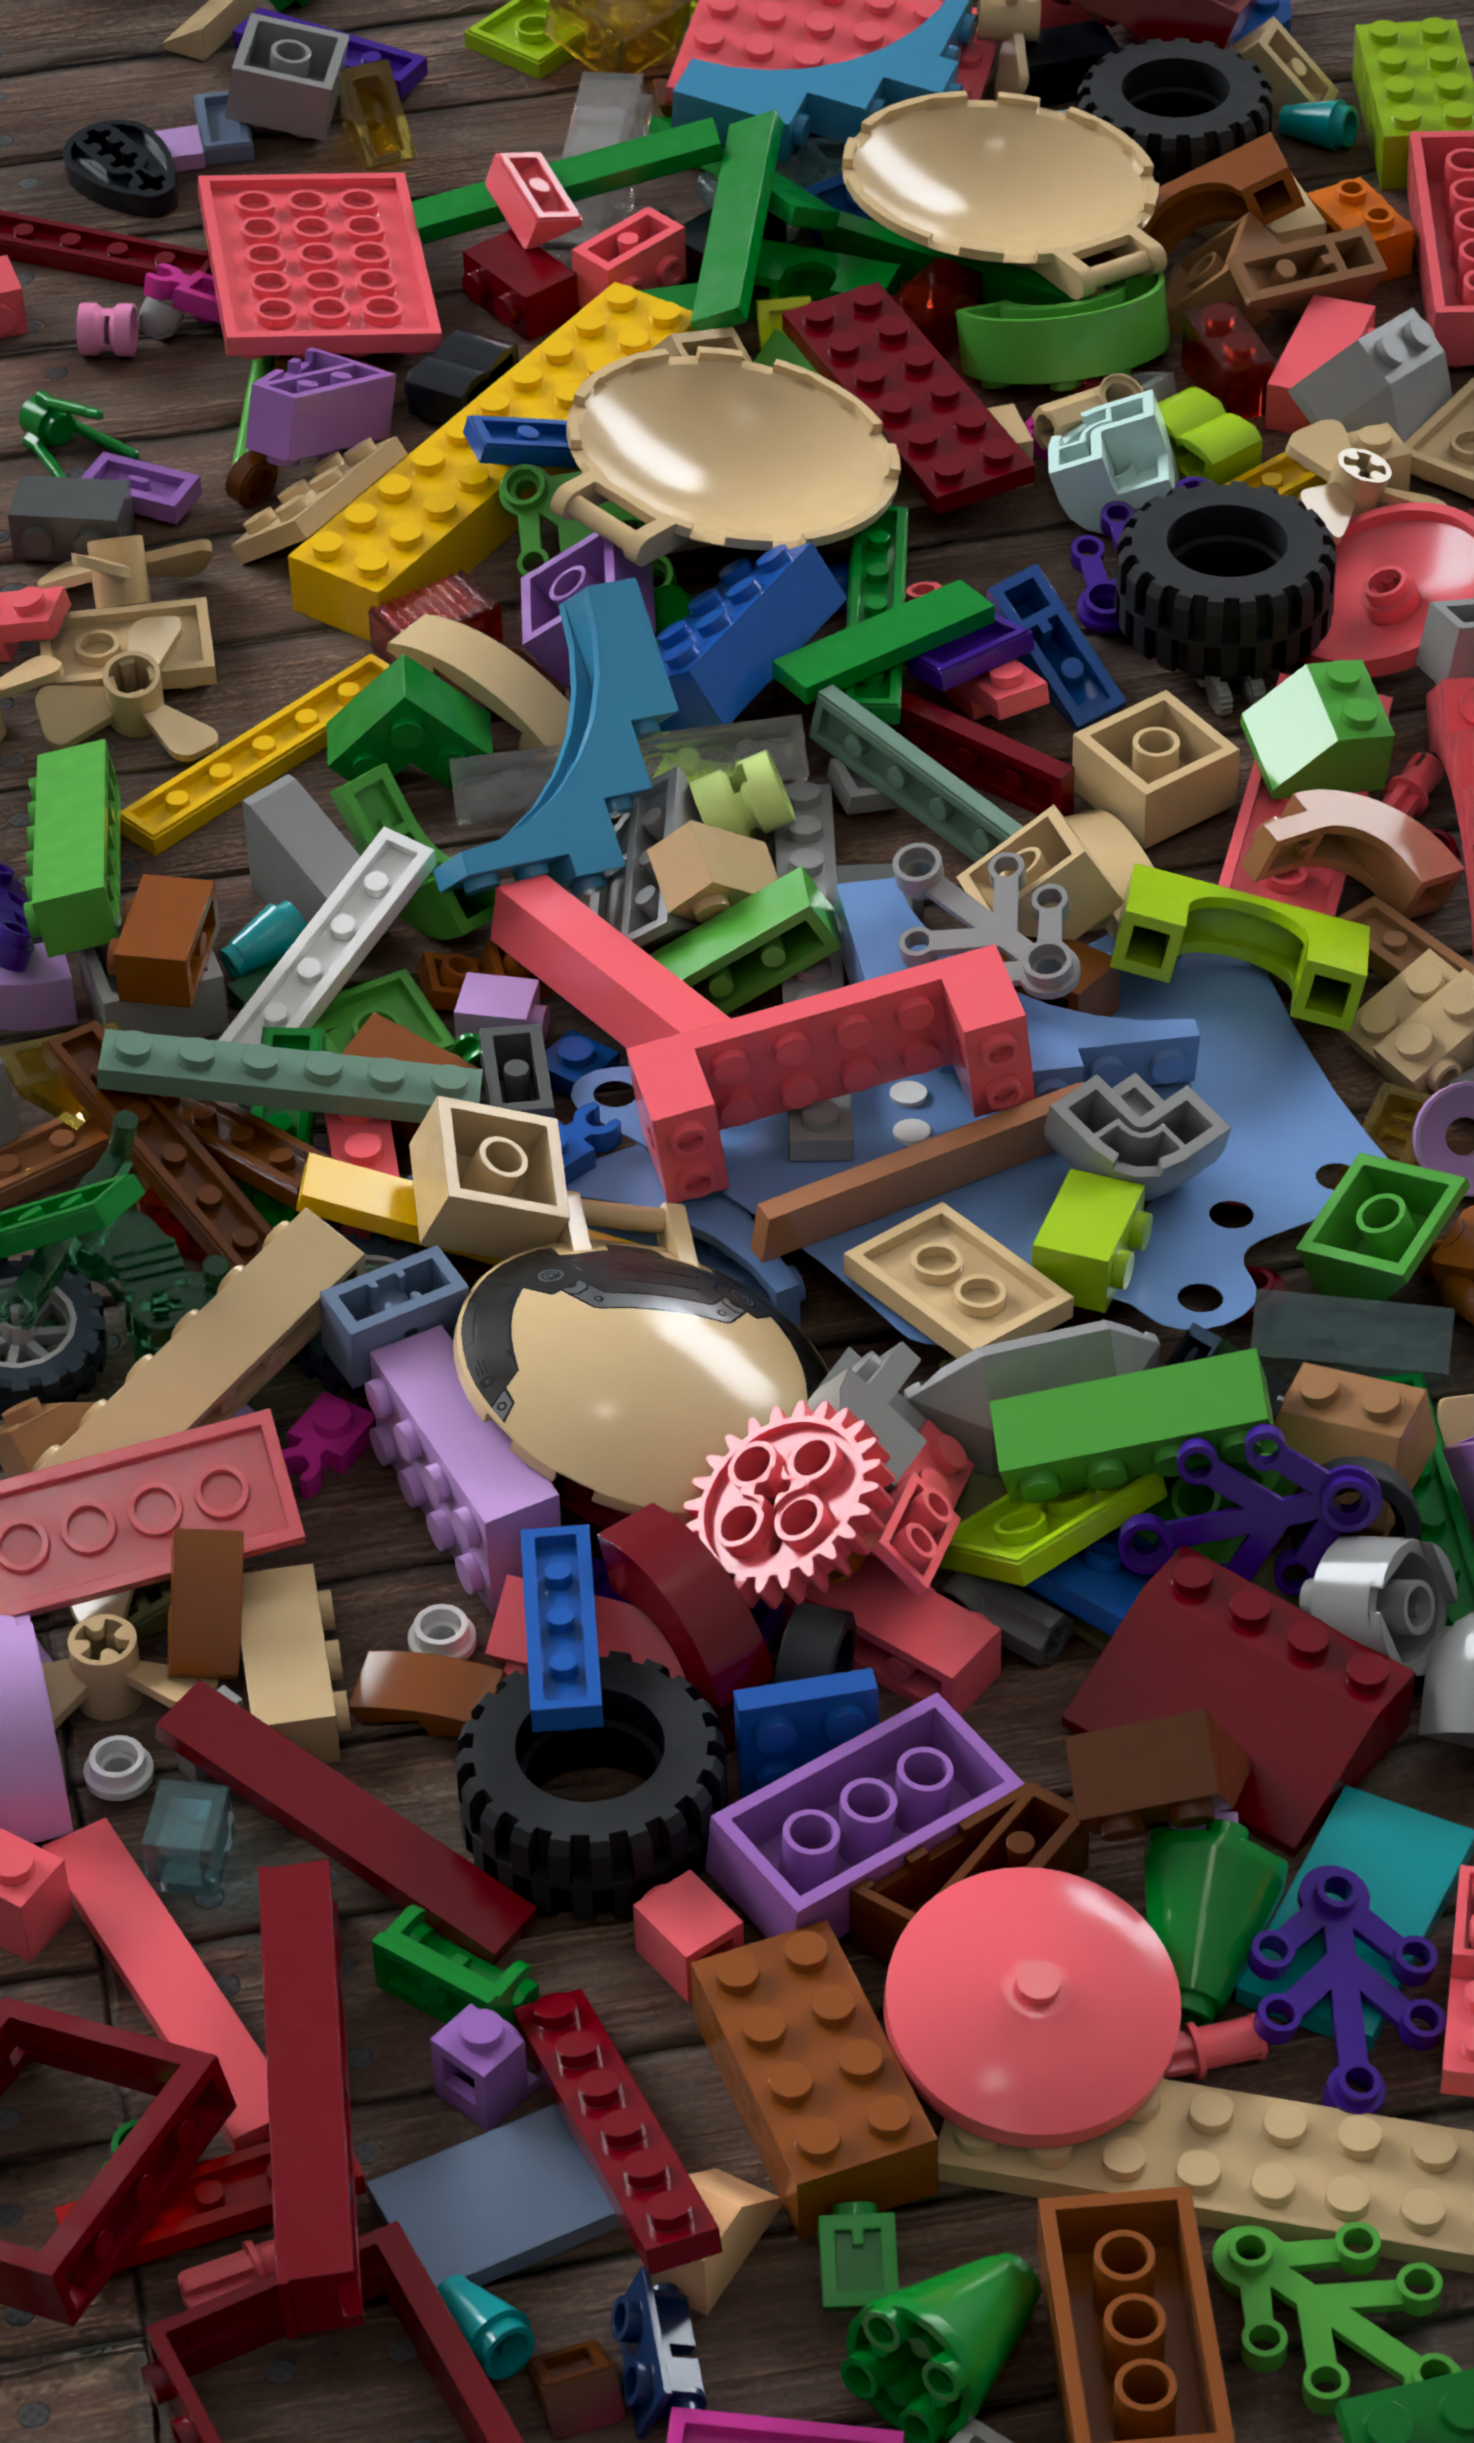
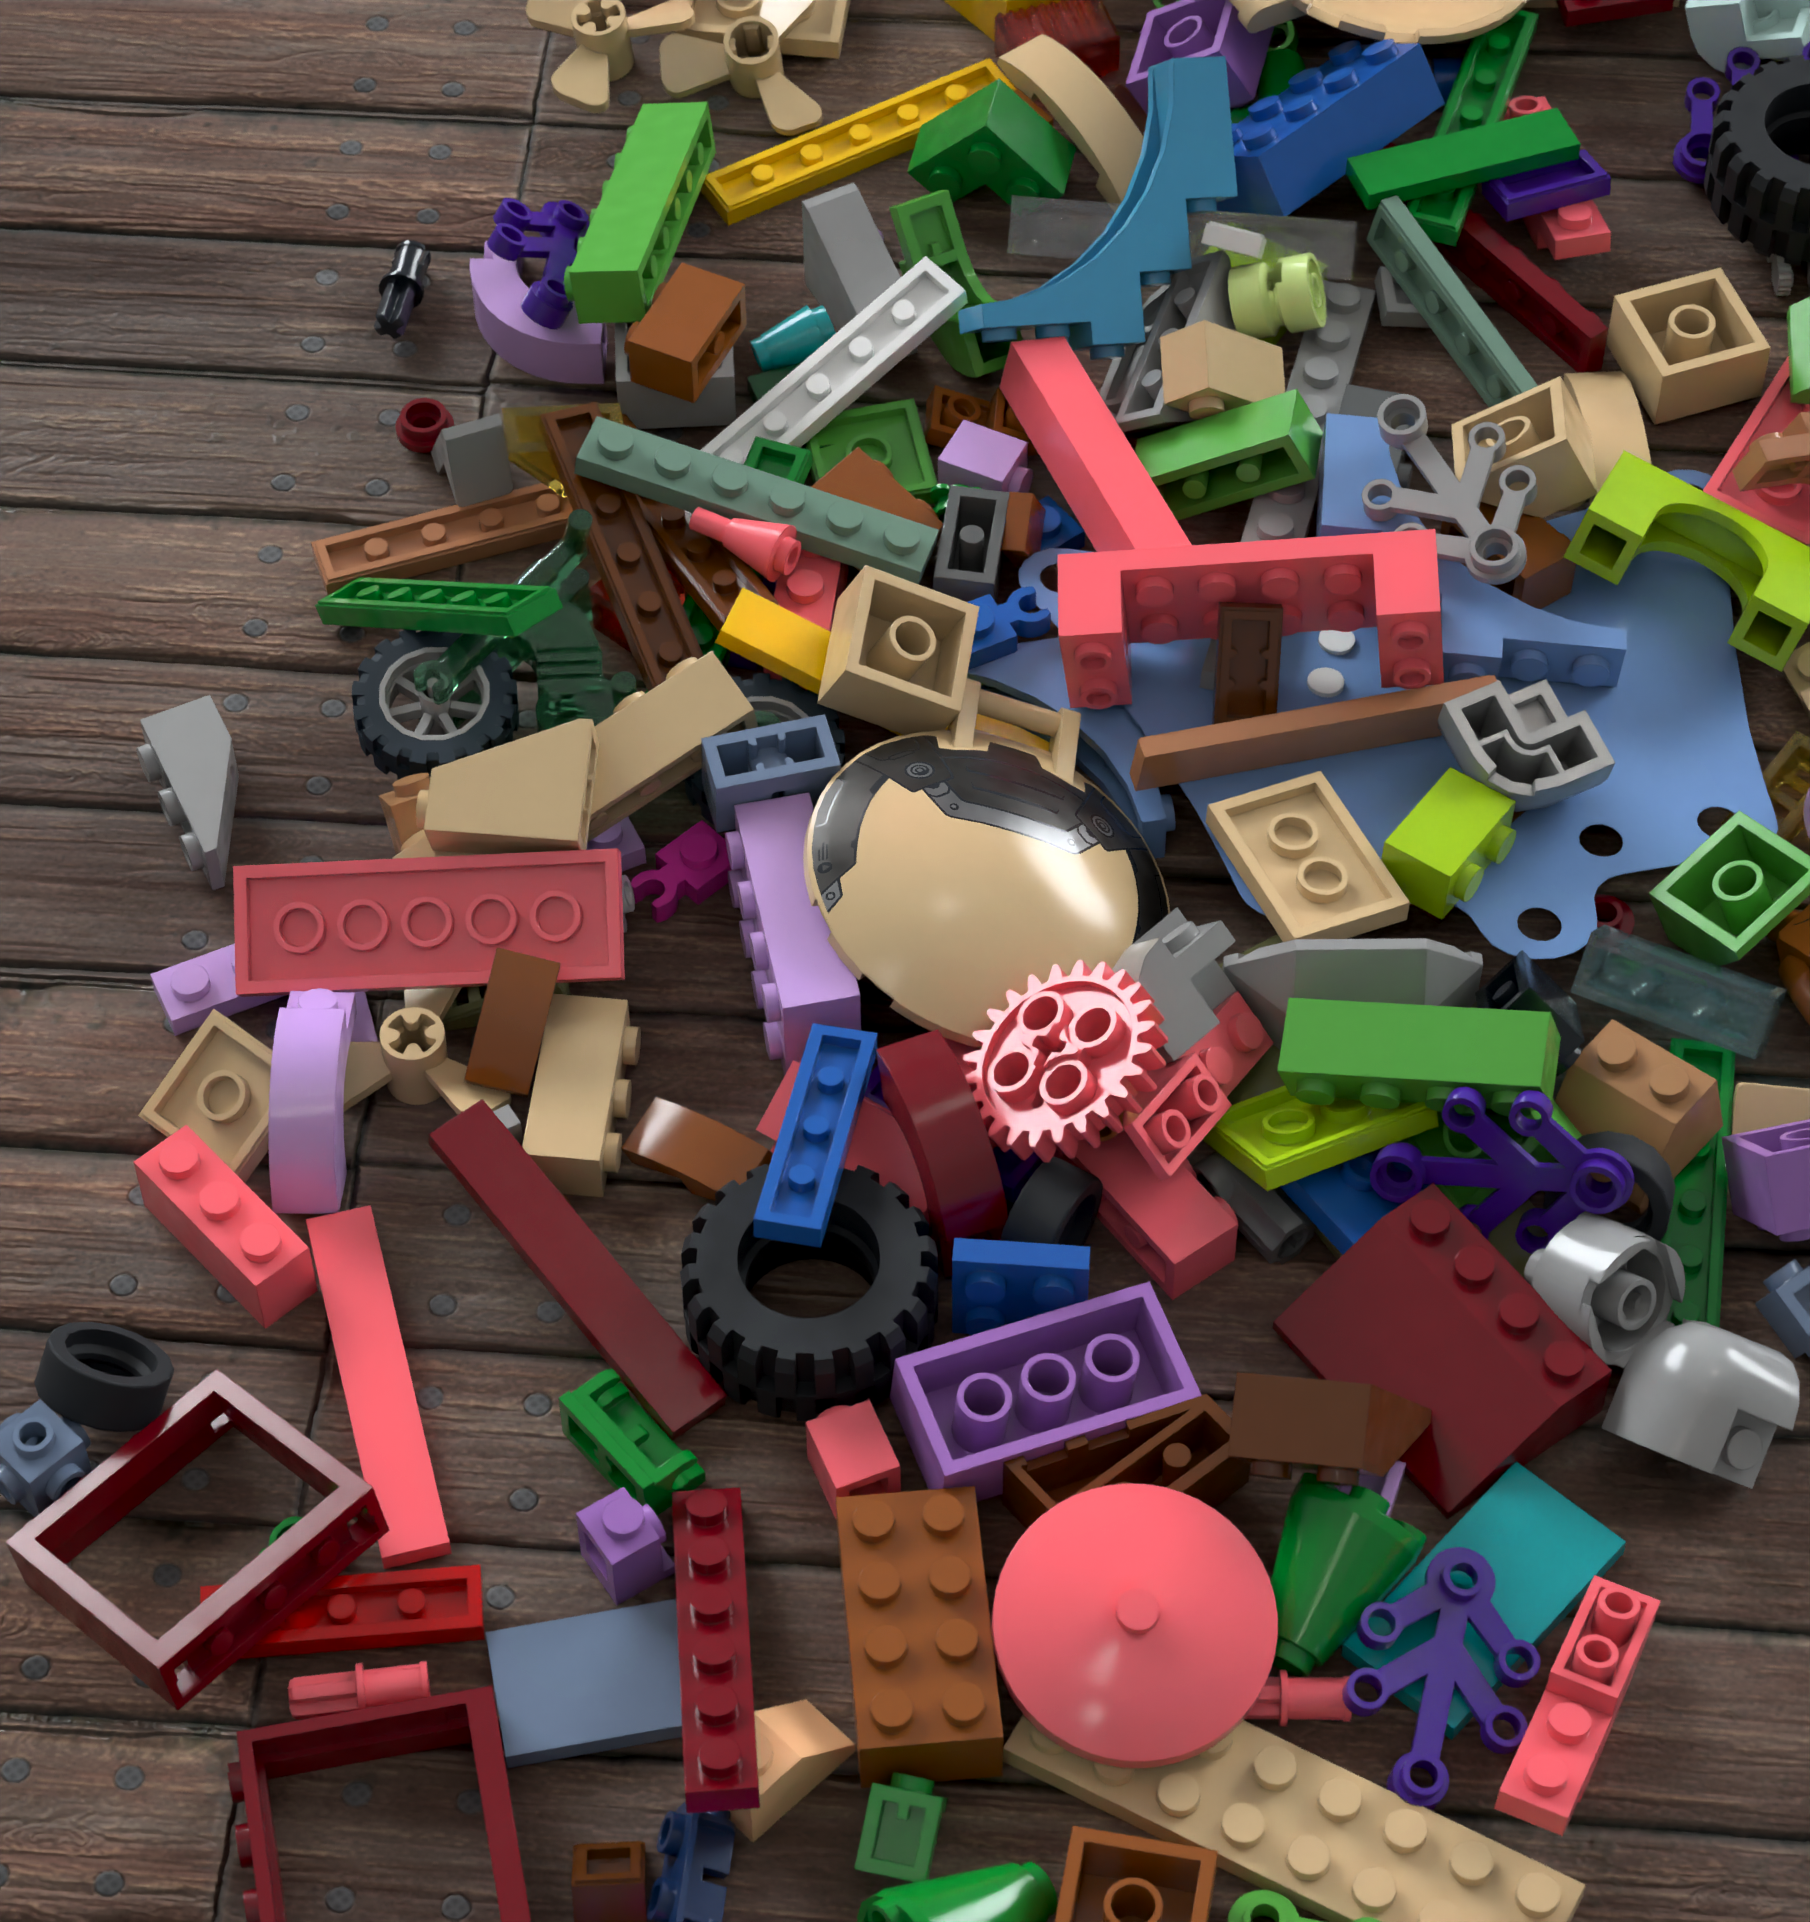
camera: 15 degrees right, 10 degrees up
(118, 1768) = (397, 1144): white plate -> none
(144, 1382) = (515, 795): none -> tan slope
(188, 1837) = (436, 1245): clear light blue brick -> none
(309, 2101) = (449, 1546): dark red tile -> none
(310, 1116) = (762, 545): none -> coral cone
(442, 1631) = (726, 1083): white plate -> none
(489, 2326) = (543, 1805): teal cone -> none
(561, 1055) = (1023, 527): none -> dark orange tile
(687, 753) = (1234, 239): none -> white tile
(837, 1114) = (1247, 660): none -> reddish brown plate
(1062, 655) = (1637, 202): blue slope -> none

